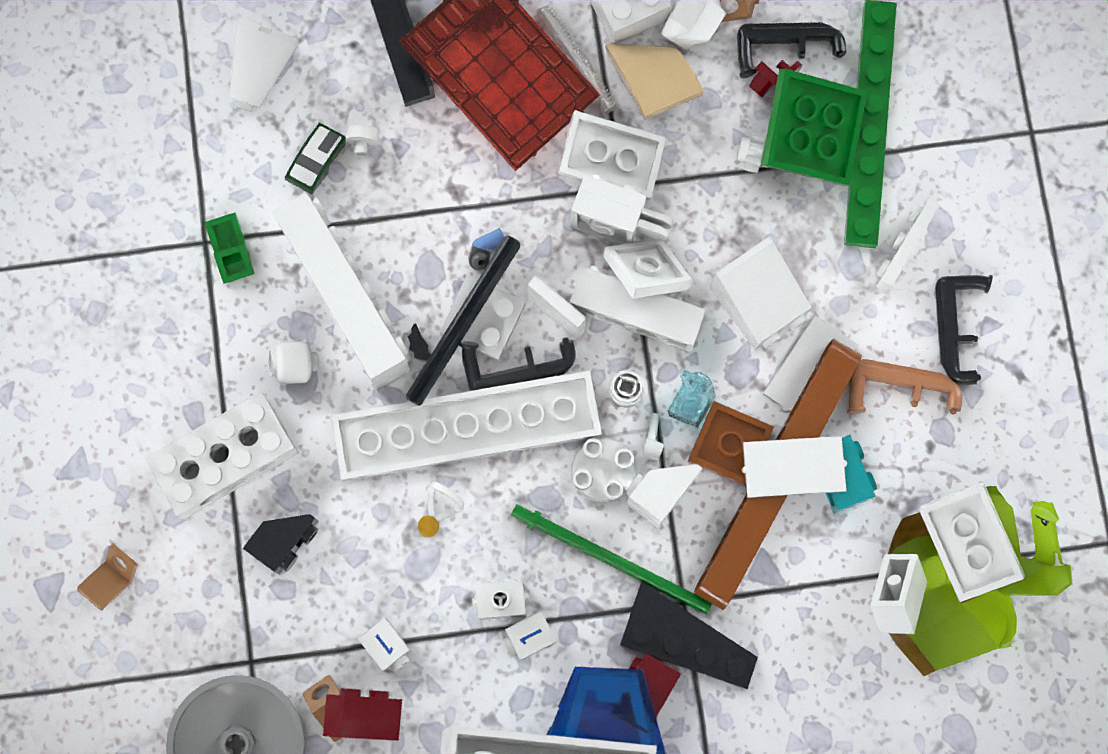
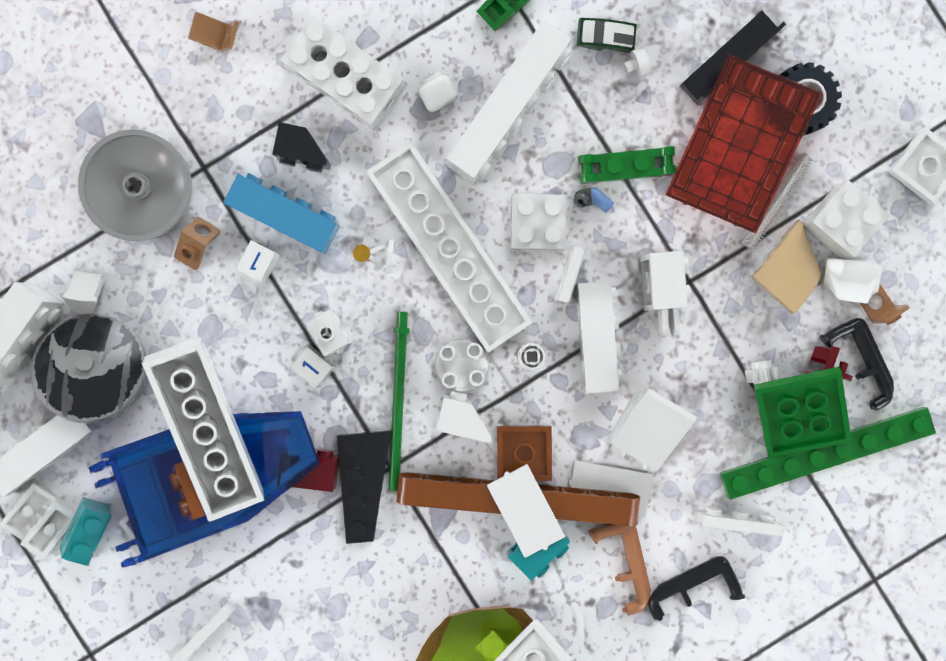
camera: 65 degrees right, 10 degrees up
(344, 593) = (281, 213): none -> dark azure brick
(362, 717) = (195, 270): dark red brick -> none
(418, 344) = (493, 185): black piece -> none
(463, 320) = (528, 208): black axle -> none
(465, 197) = (627, 165): none -> green plate
(518, 374) = (504, 266): black piece -> none
(612, 151) = (713, 263): white plate -> none
(647, 268) = (631, 331): white plate -> none
(653, 448) = (494, 395): white hand -> none
(692, 398) = (545, 409): clear light blue bracket -> none
(899, 593) = (461, 632): white brick -> none

